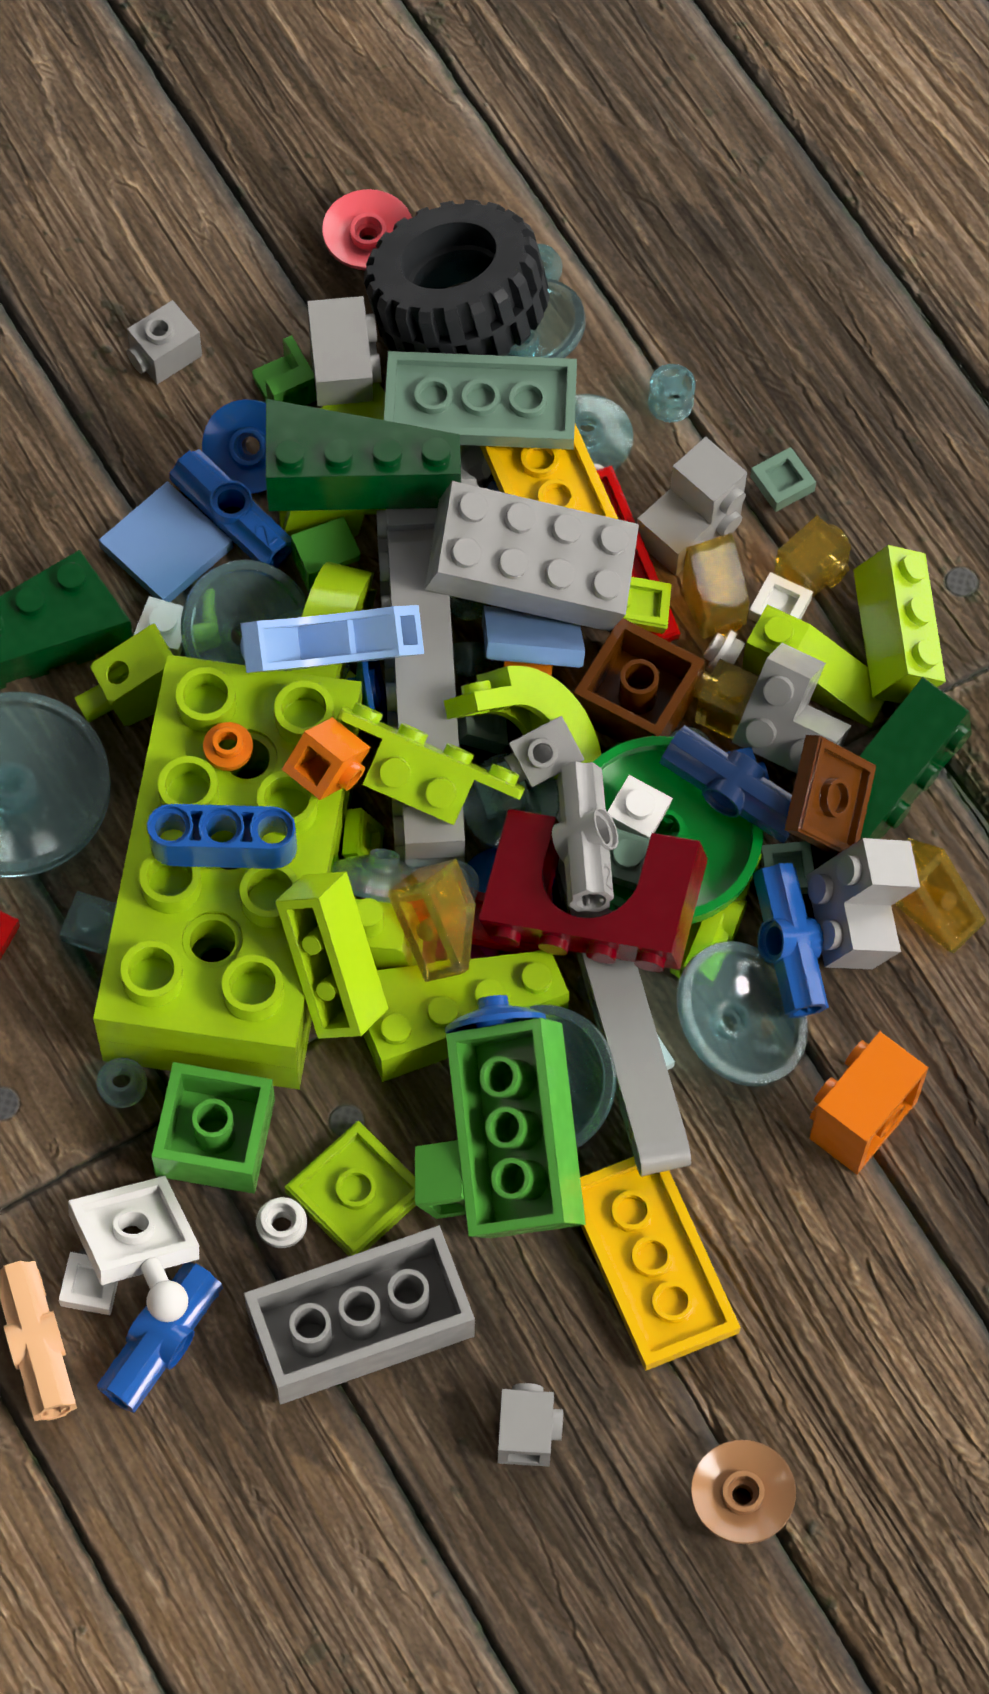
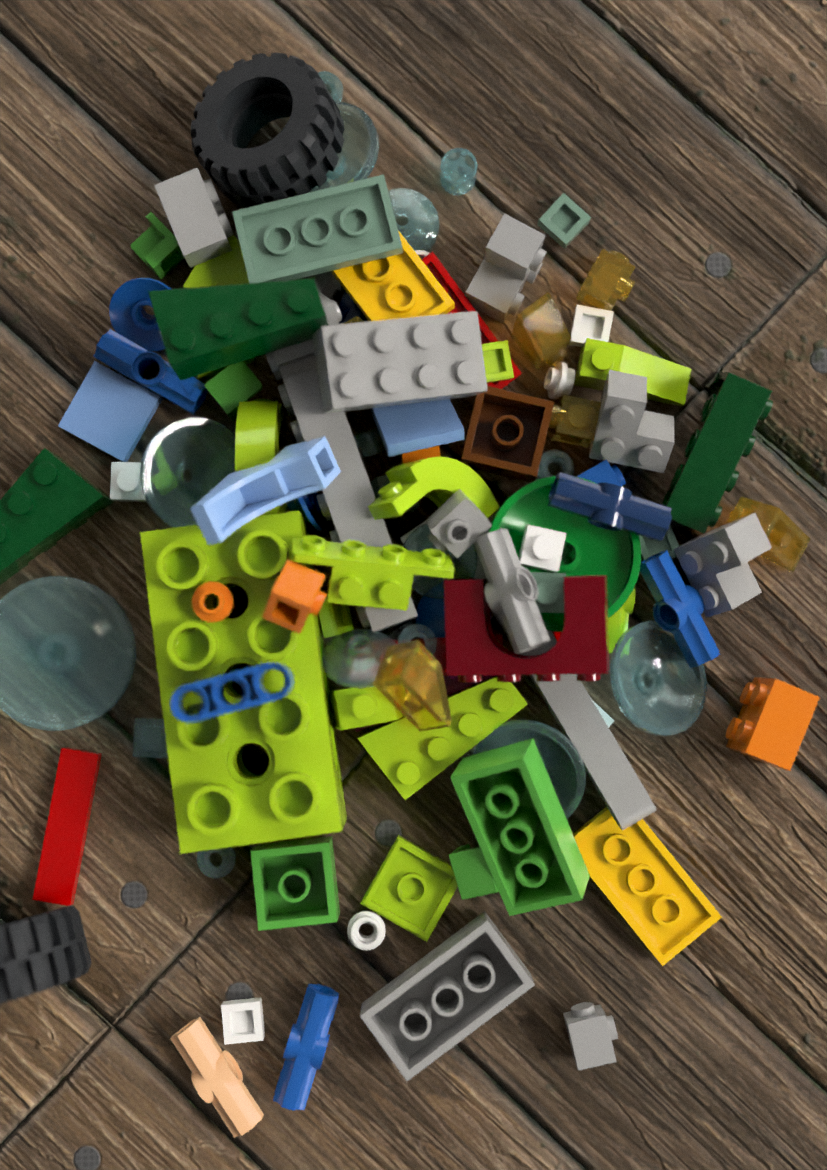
camera: 15 degrees left, 20 degrees up
(119, 1255) = (262, 1006): white plate -> none
(128, 679) = (118, 540): lime torso -> none
(163, 343) = (53, 244): light grey brick -> none
(332, 955) = (346, 751): lime brick -> none
(356, 216) = (168, 88): coral dish -> none
(491, 1012) = (484, 757): blue dish -> none
(748, 1467) = (767, 1053): medium nougat dish -> none
(829, 795) = (686, 497): reddish brown tile -> none
(898, 622) = (688, 321): lime brick -> none

